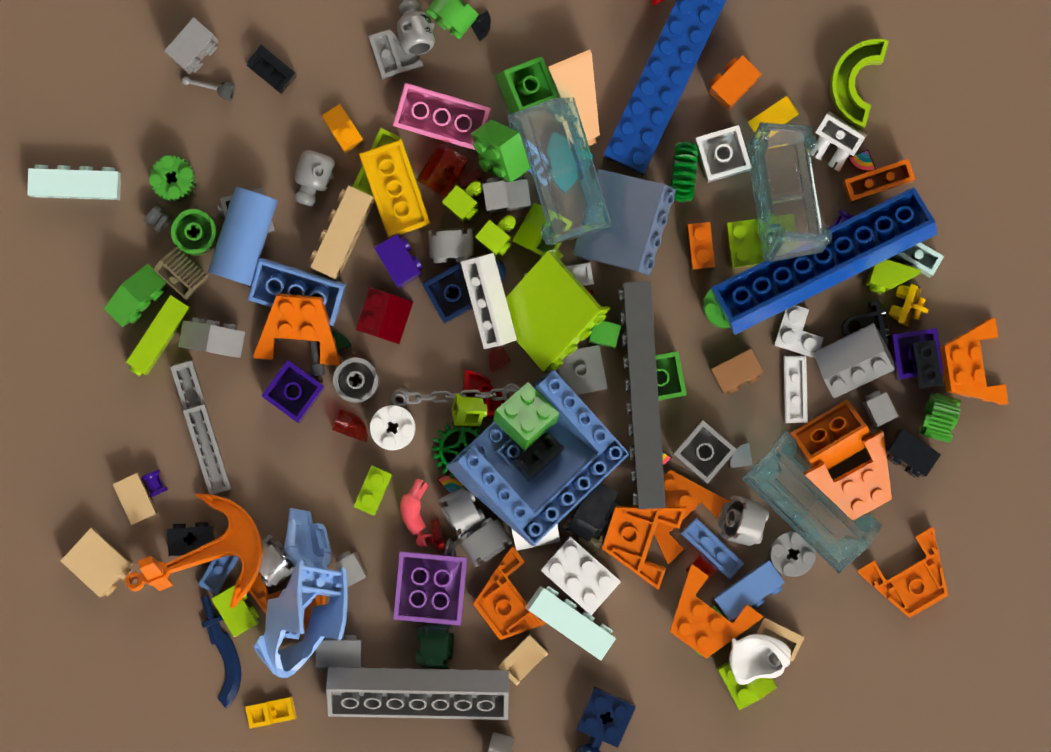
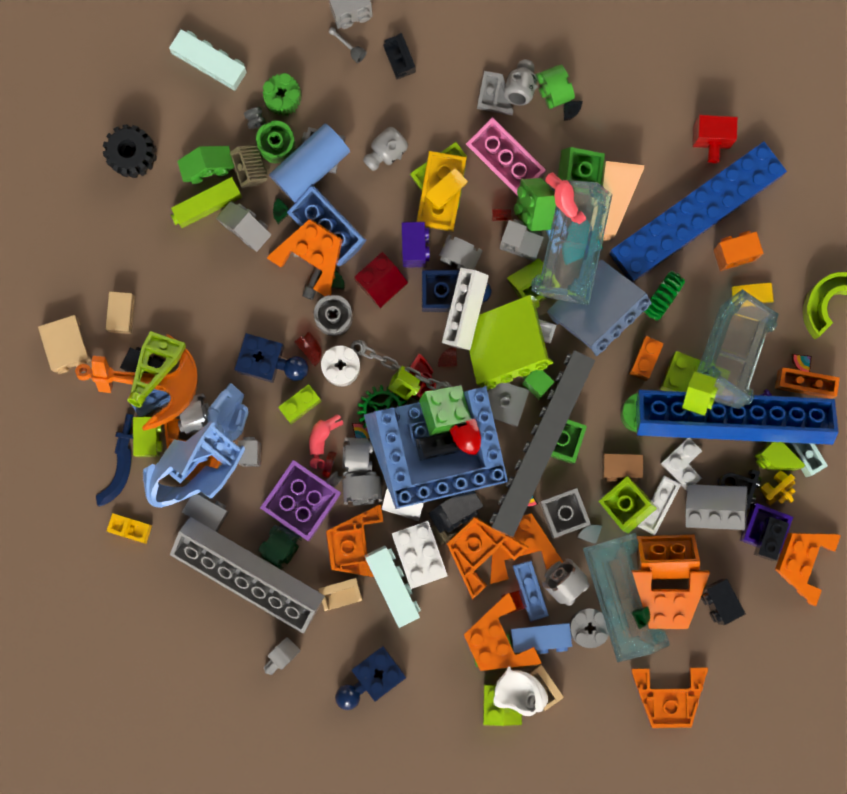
camera: 30 degrees right, 5 degrees down
(34, 326) = (119, 147): none -> black wheel
(154, 483) = (141, 309): dark purple bush -> none
(200, 426) = (199, 287): light grey slope -> none
(201, 510) = (161, 346): none -> lime plate
(239, 300) = (280, 211): none -> dark green tile
(293, 391) = (282, 298): dark purple brick -> none
(342, 128) = (427, 128): light orange slope -> none
(342, 233) = (384, 201): tan brick -> none
(347, 456) = (266, 369): none -> dark blue brick
(399, 185) = (446, 188): none -> yellow slope
(442, 170) = (484, 196): clear red brick -> none
(462, 203) = (486, 228): lime brick -> none
(494, 236) = (496, 265): lime brick -> none
(527, 130) = (565, 198): none -> coral arm
(564, 432) = (467, 437): none -> red brick
(723, 154) = (700, 299): white brick -> none
(763, 408) = (627, 505): none -> lime slope
(775, 260) = (700, 393): none -> lime brick
(838, 513) = (641, 616): none -> dark green tile
(840, 133) = (800, 336): white brick -> none
(879, 408) = (716, 553): light grey brick -> none
(941, 417) = (759, 587): bright green brick -> none

